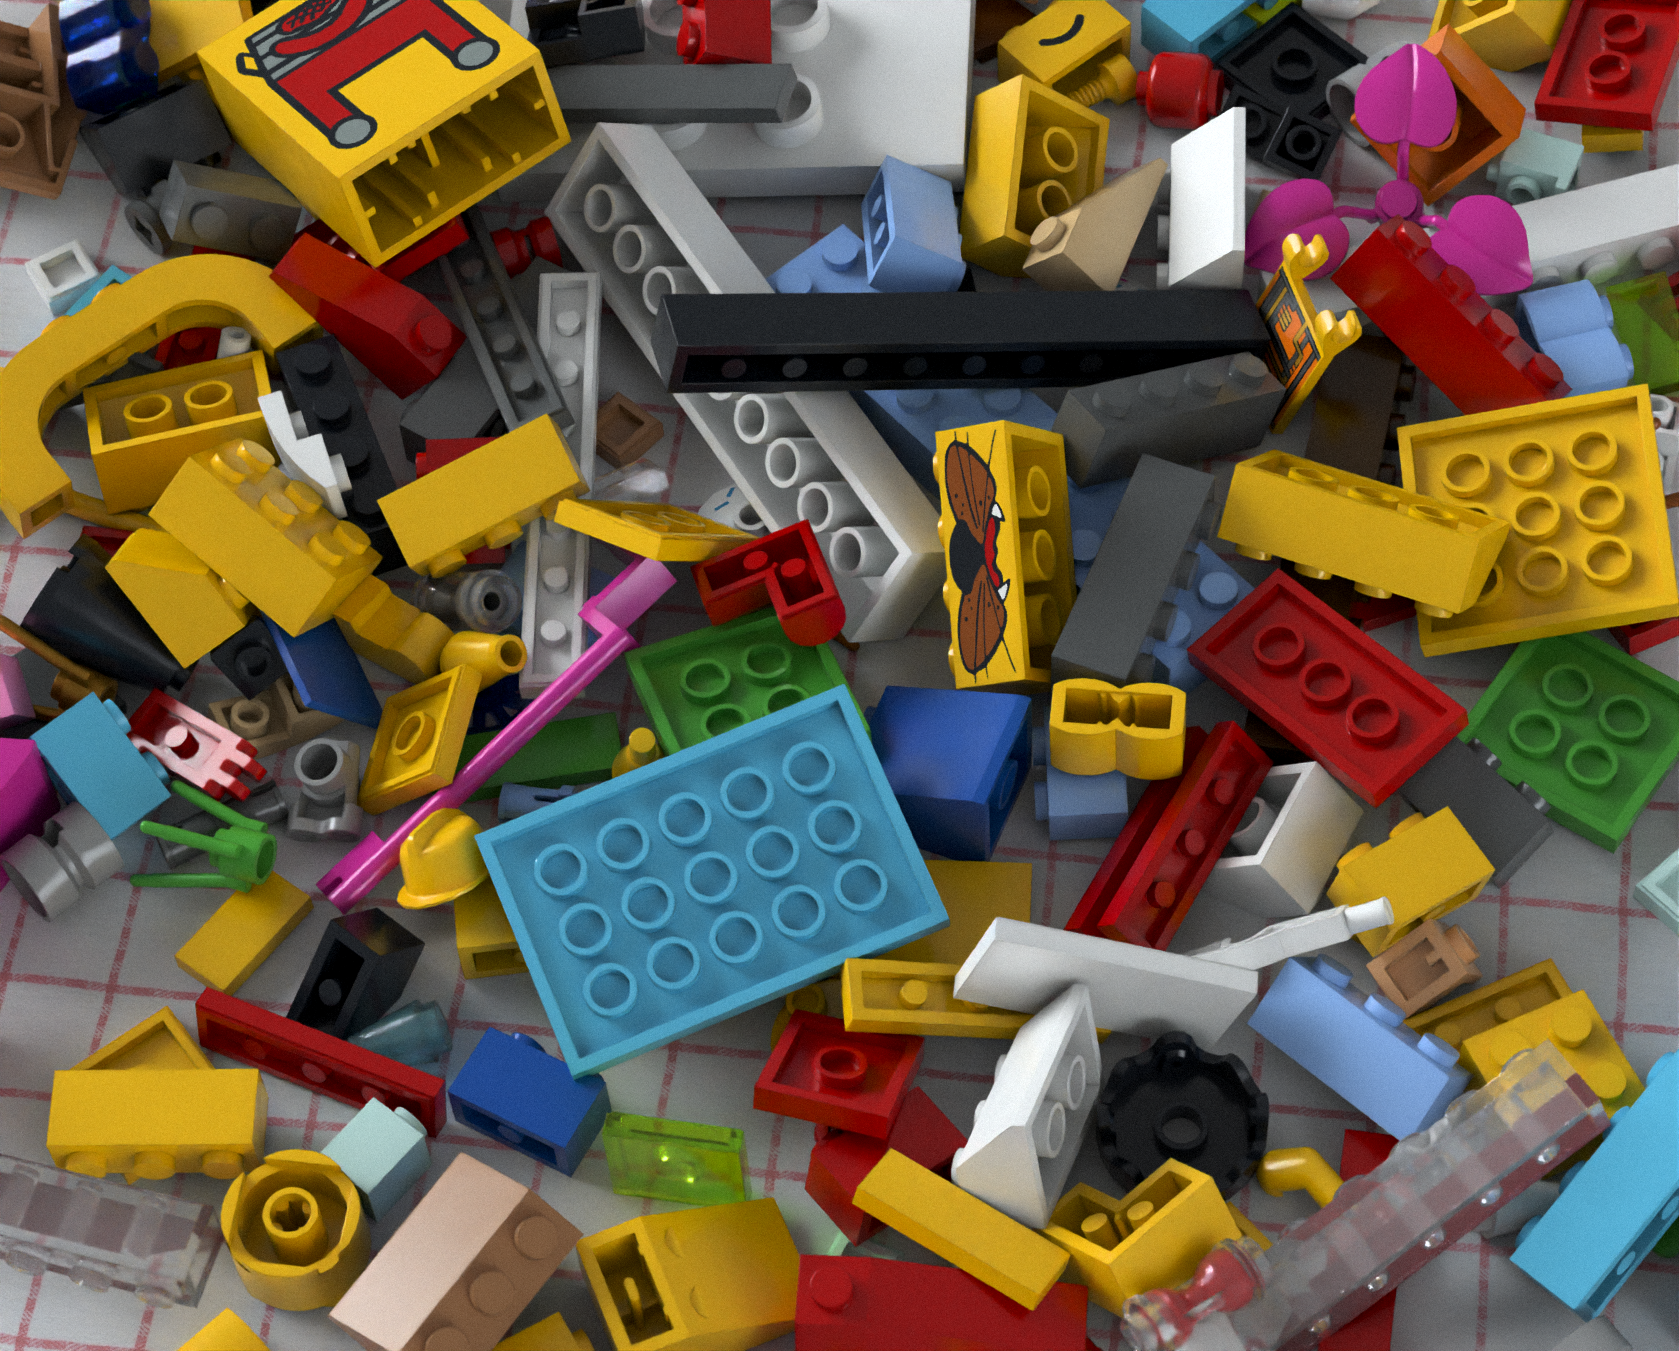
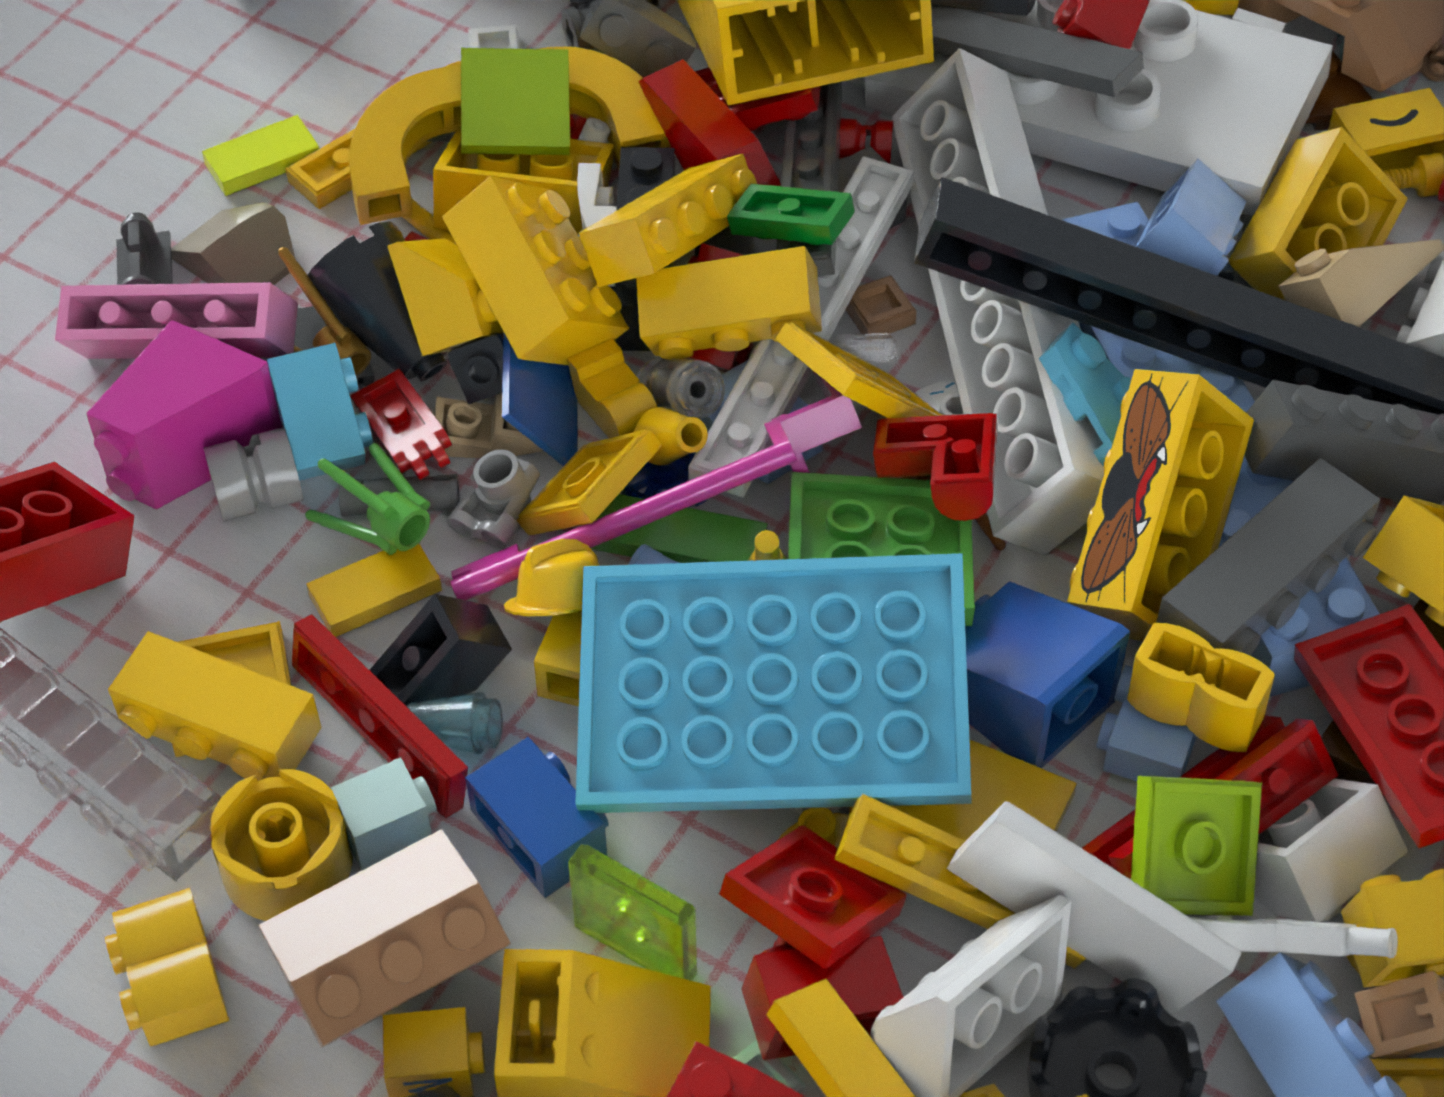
camera: 20 degrees right, 5 degrees down
(143, 344) = (515, 101): none -> lime tile
(383, 426) = (665, 221): none -> yellow brick
(505, 375) = (791, 214): none -> green plate
(888, 455) = (1087, 382): none -> medium azure wing
(1174, 882) = (1197, 843): none -> lime tile

